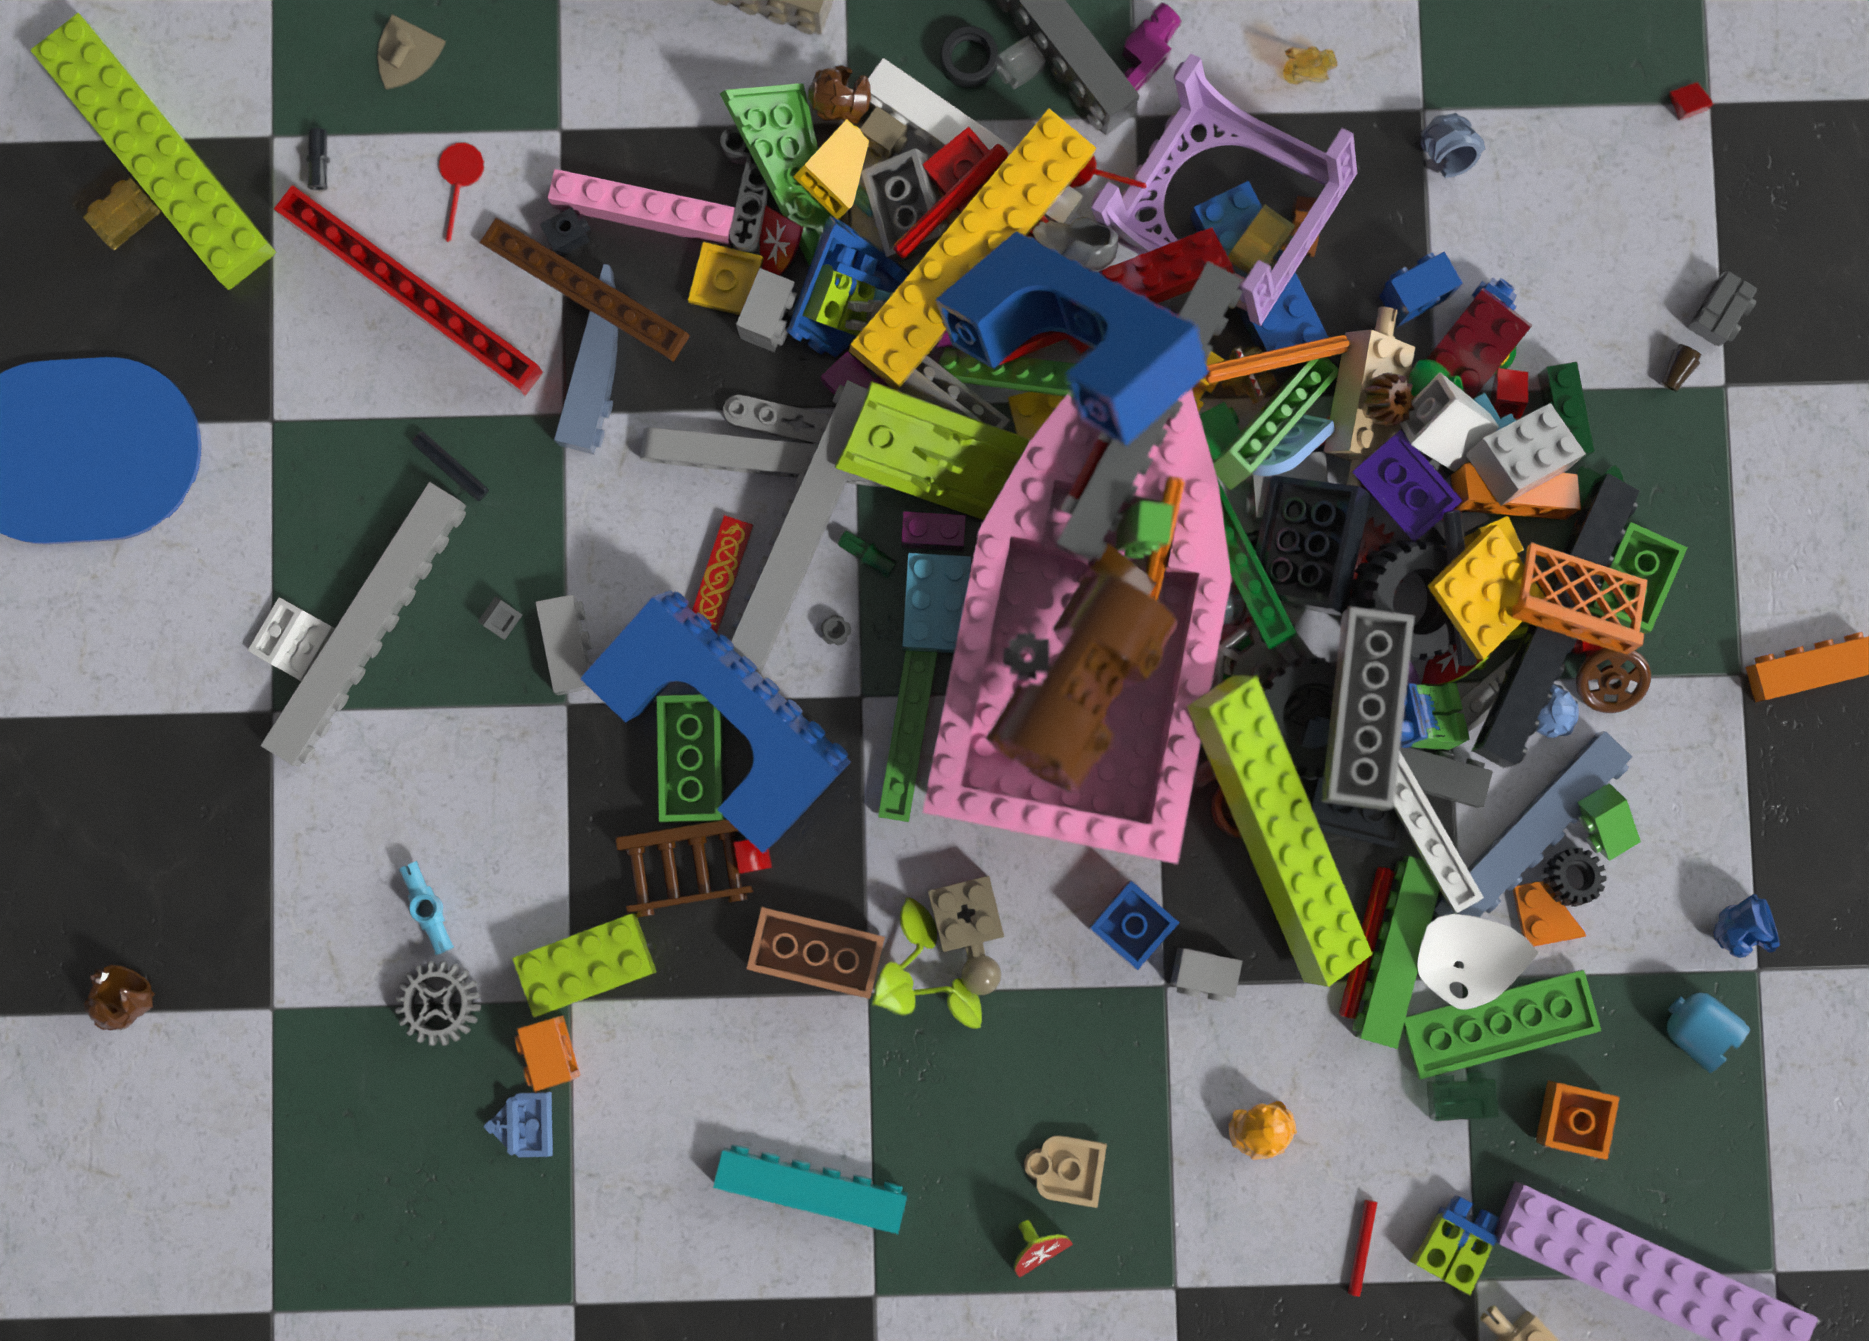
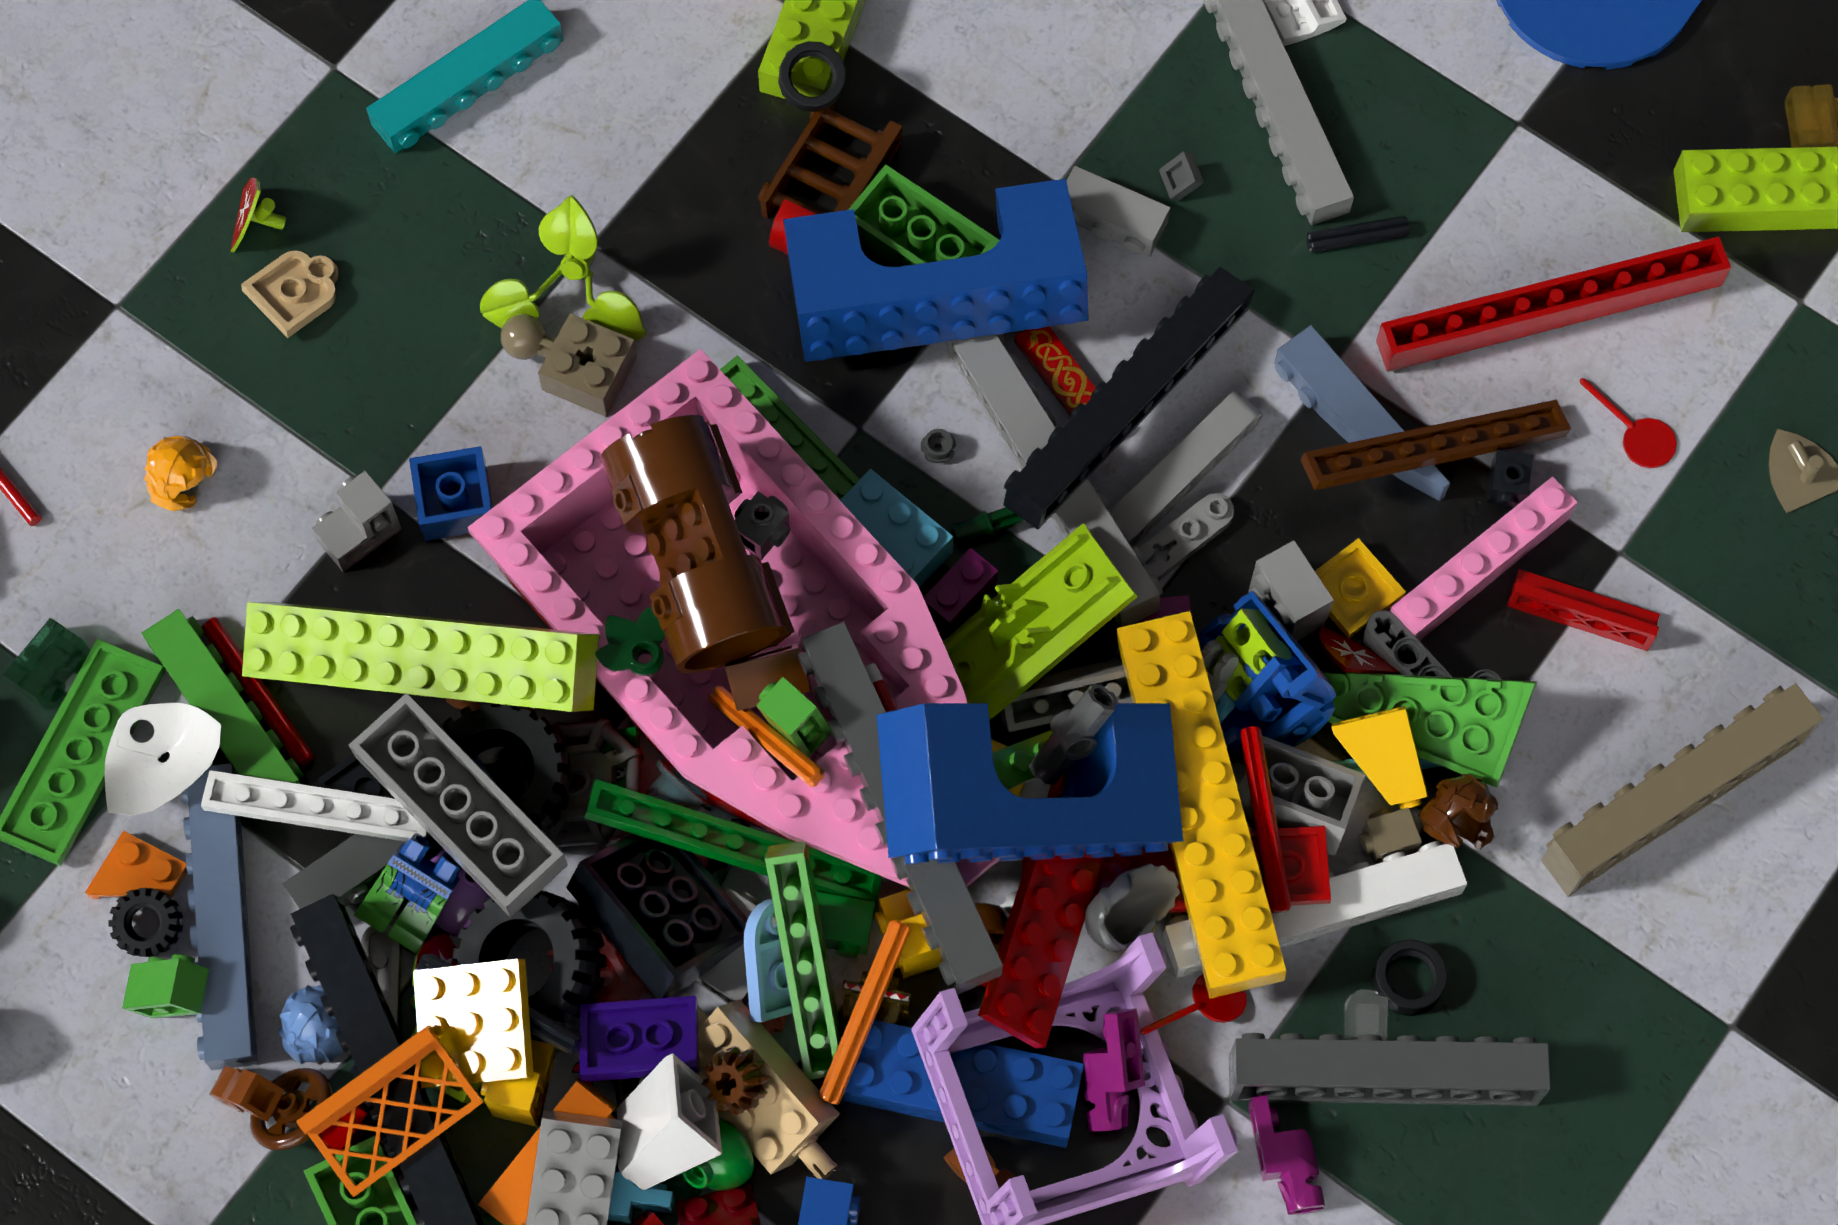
camera: 130 degrees right, 15 degrees down
(317, 160) = (1746, 320): black axle -> none
(622, 122) = (1584, 610): none -> red fence
(636, 902) = (813, 49): none -> black tyre
(710, 515) = (1126, 398): none -> black brick
(816, 952) = (663, 216): nougat brick -> none
(1010, 339) = (1073, 734): none -> dark grey piece
(1176, 683) = (631, 640): none -> dark green plate
(1184, 185) = (1114, 1071): none -> magenta plate
(1262, 240) = (992, 1087): clear yellow brick -> none
(1632, 715) = (247, 1092): none -> dark orange leg

